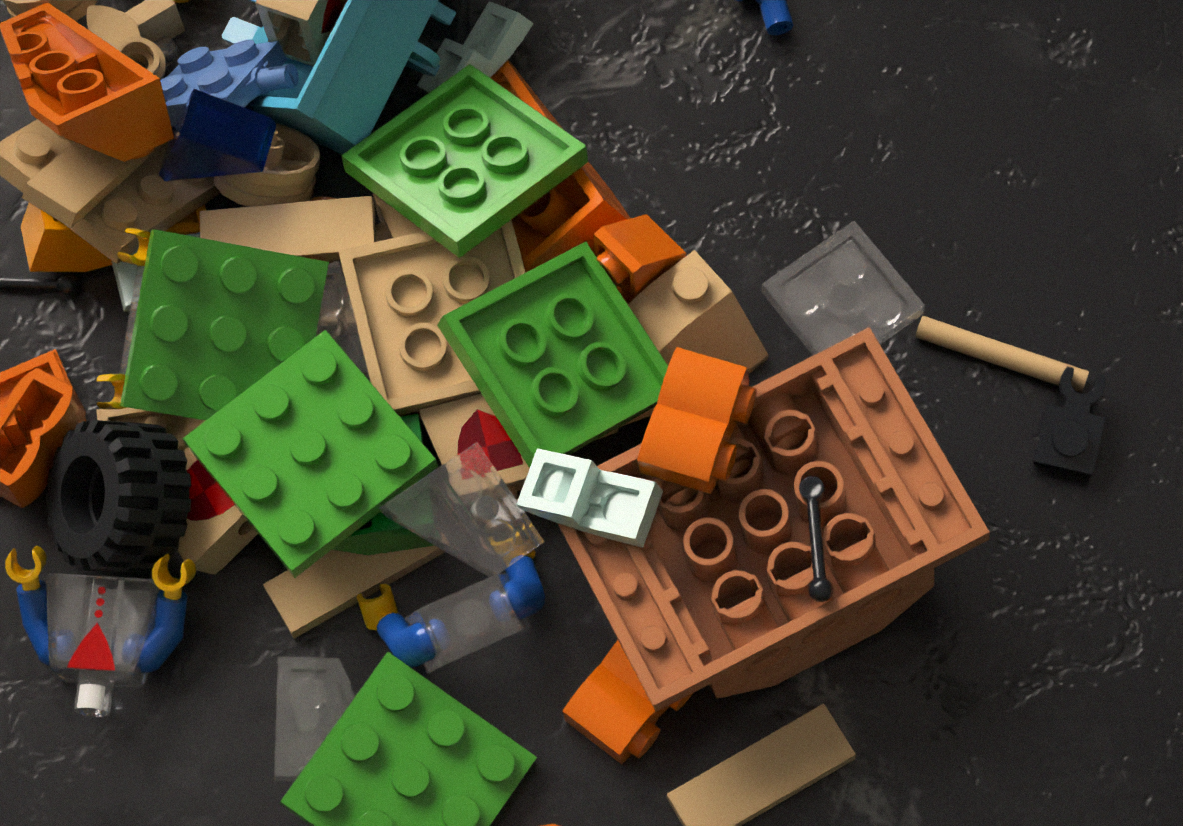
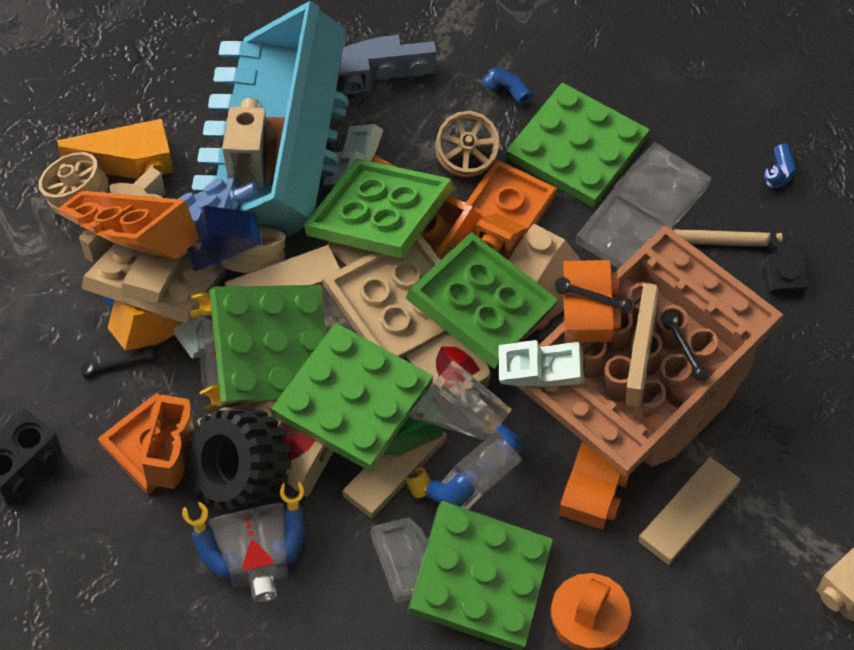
camera: 25 degrees left, 10 degrees down
(652, 83) = (467, 144): none -> tan wheel
(657, 391) = (563, 286): none -> black hinge
(690, 190) = (512, 195): none -> orange tile
(746, 518) = (642, 345): none -> tan tile
(831, 128) = (577, 144): none -> bright green plate
(937, 234) = (664, 182): none -> clear plate
(1140, 266) = (785, 167): none -> blue arm

